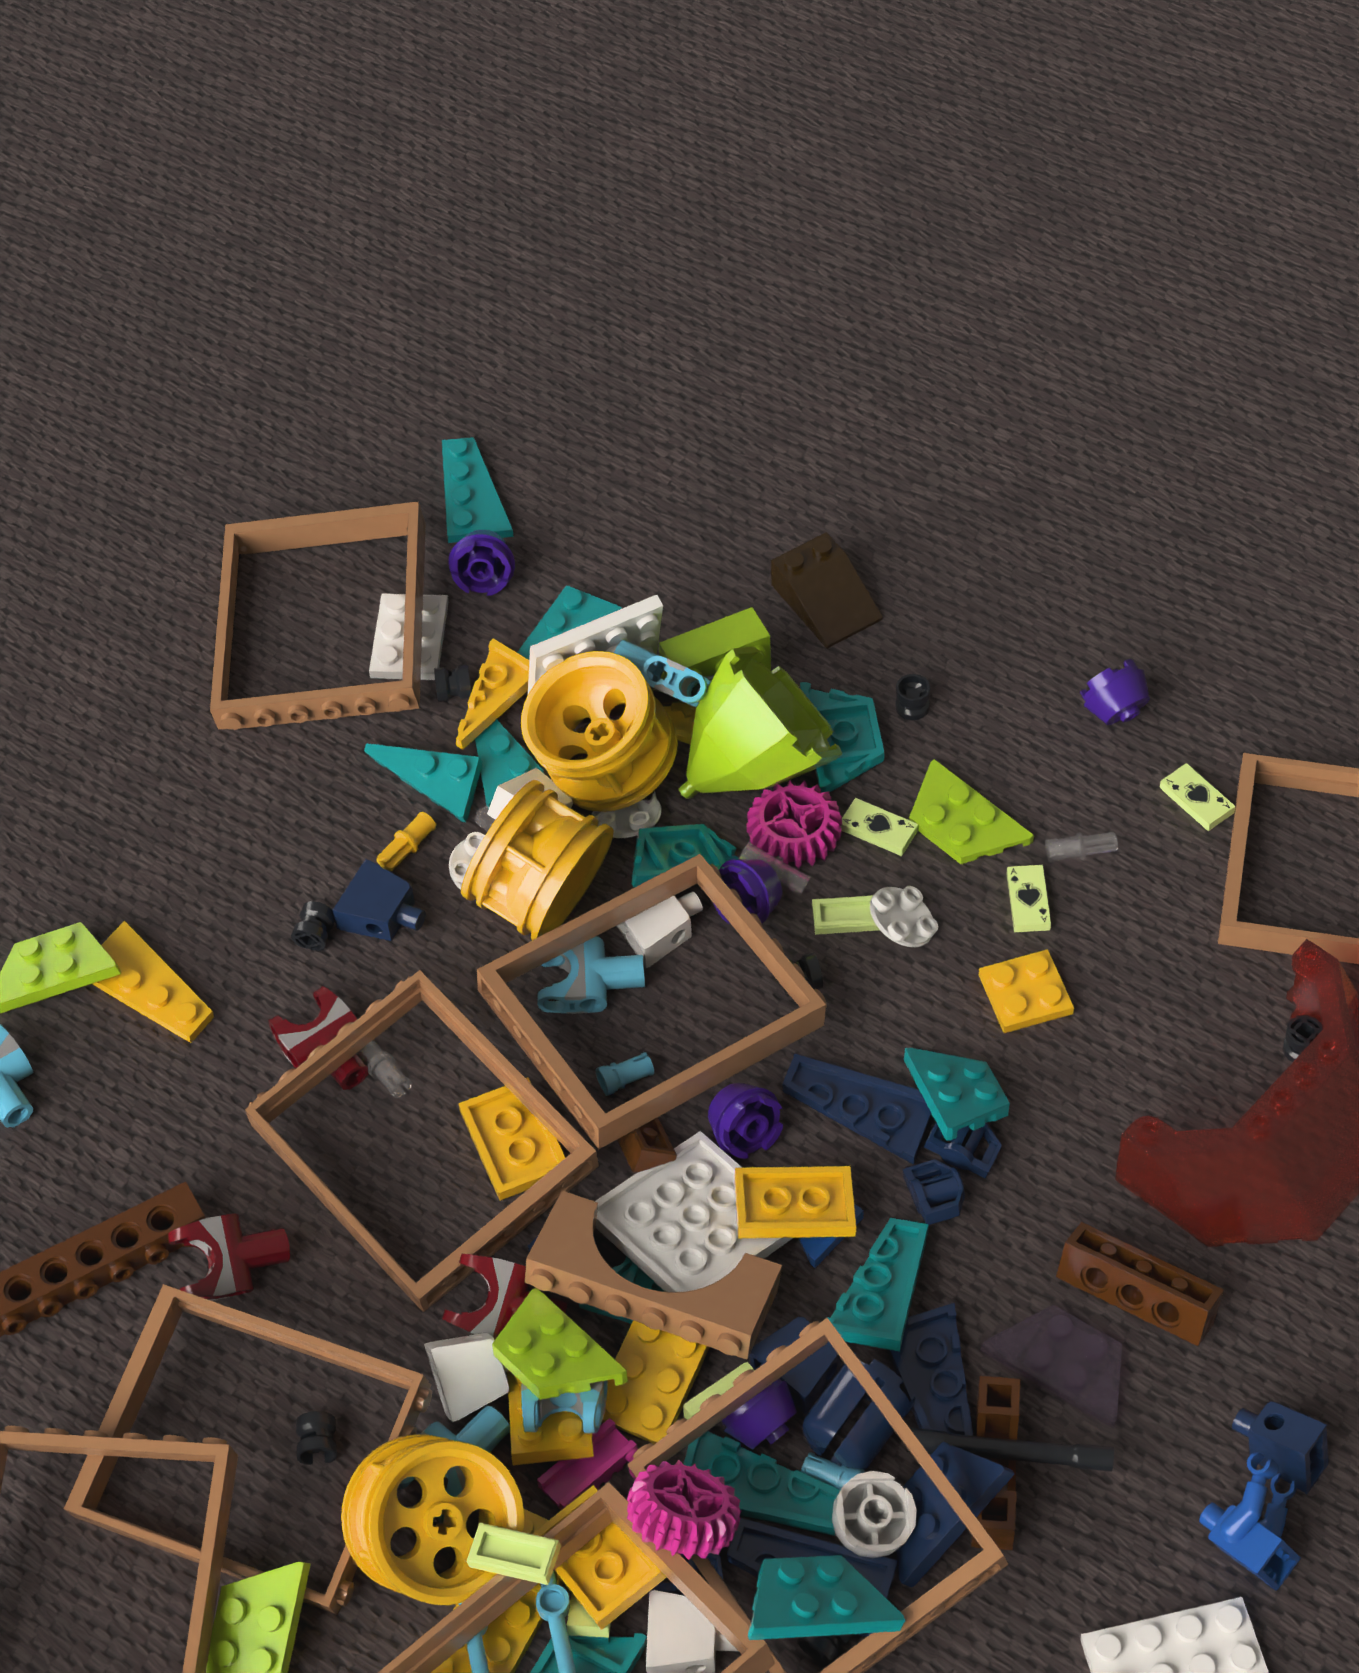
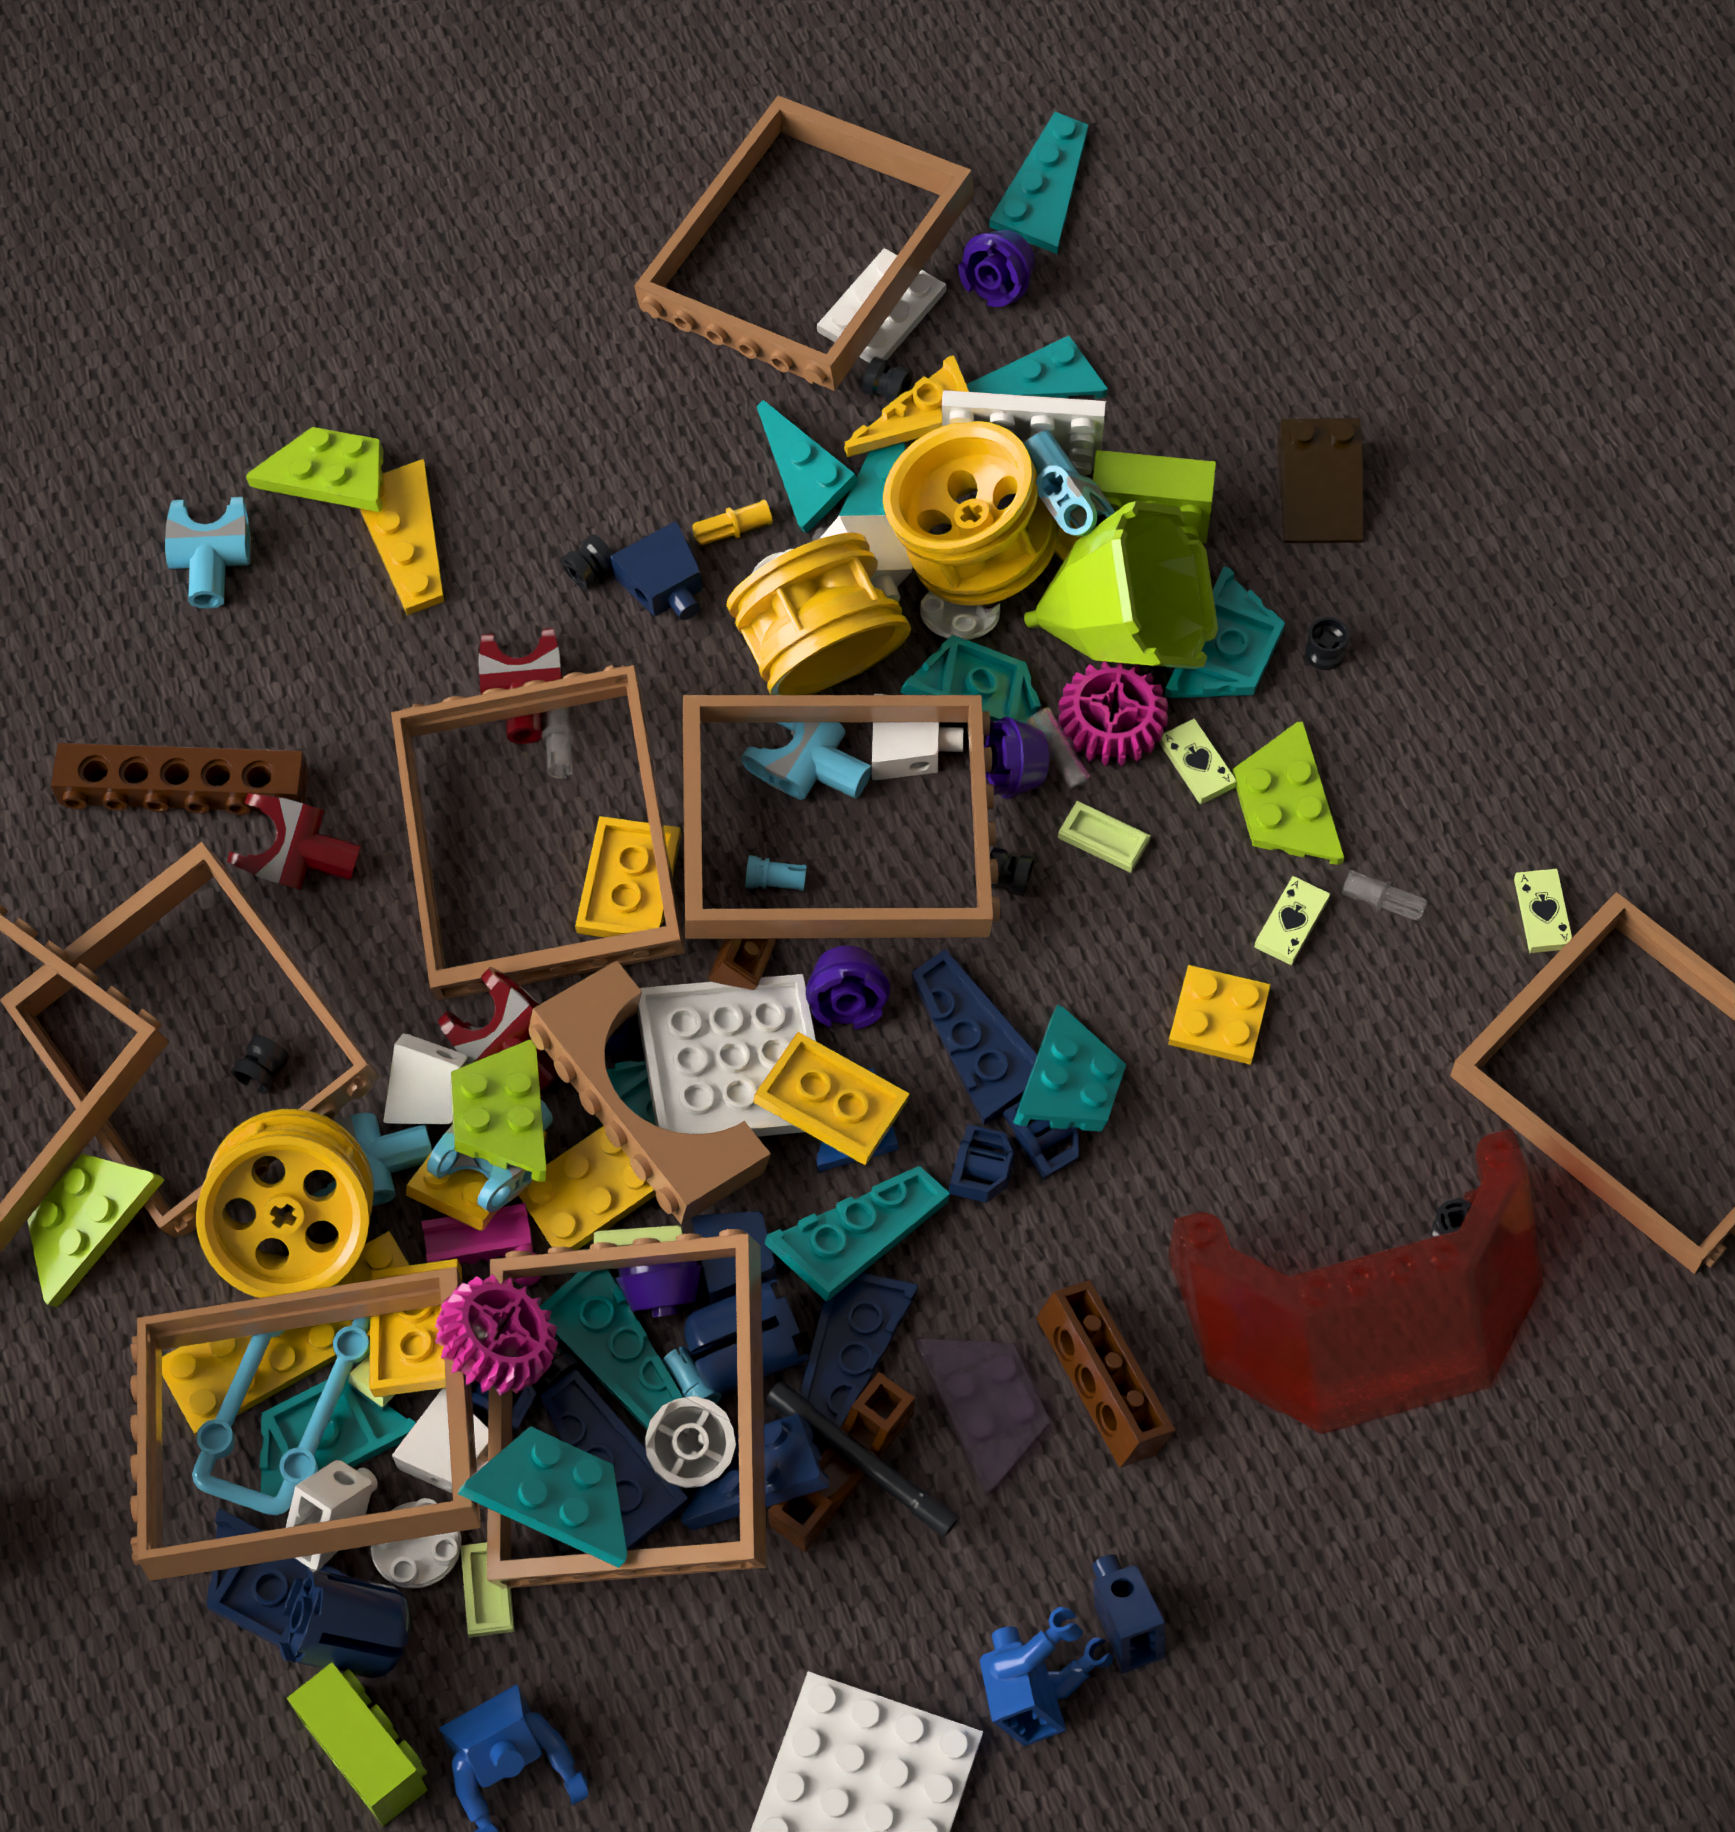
camera: 30 degrees right, 10 degrees up
(513, 1553) = (327, 1282): yellowish green tile -> none
(903, 916) = (1150, 868): white dish -> none
(1117, 693) = (1534, 755): dark purple cone -> none

